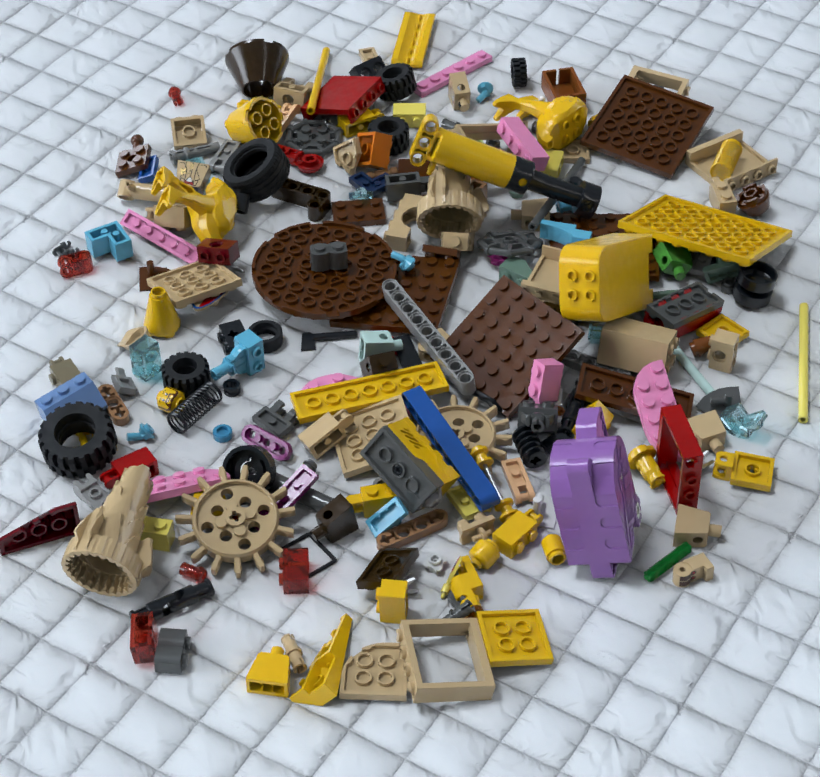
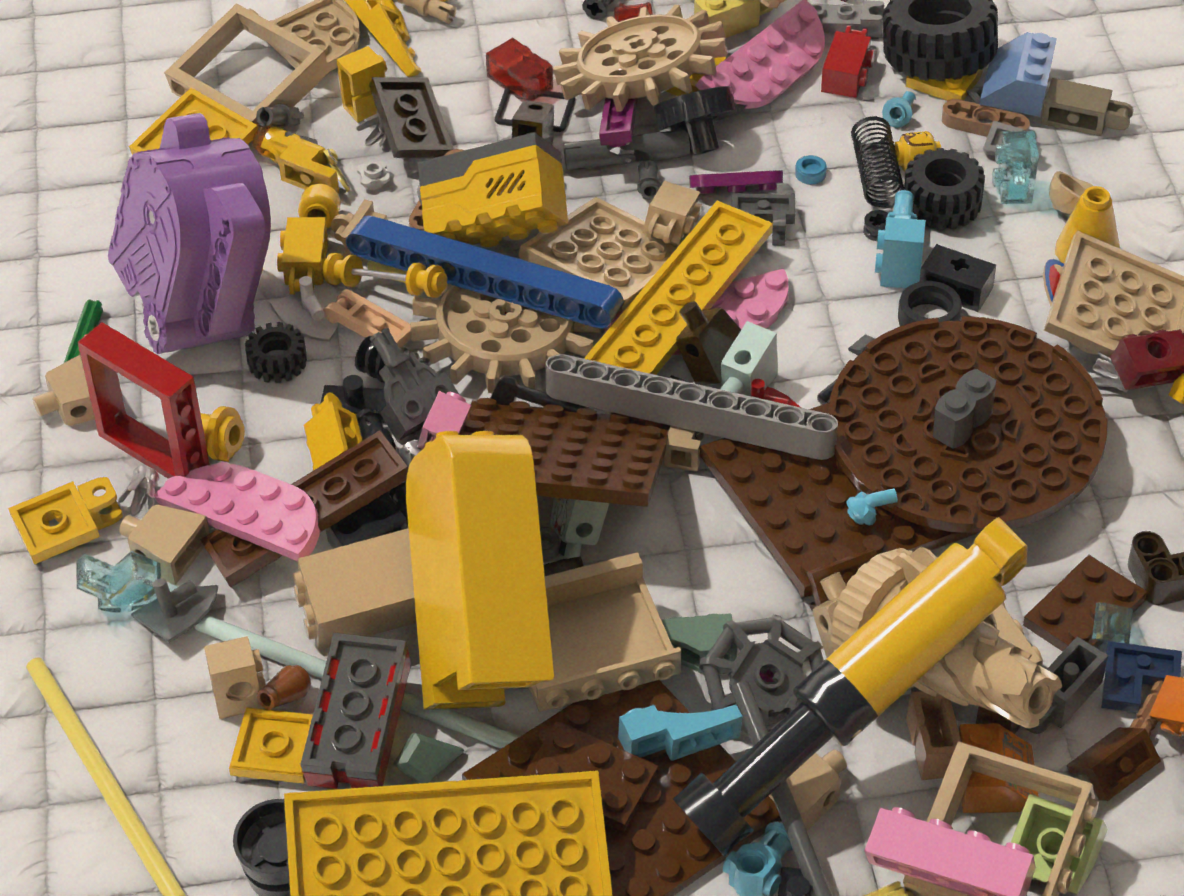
camera: 140 degrees right, 5 degrees up
(692, 570) = (38, 340): tan leg -> none

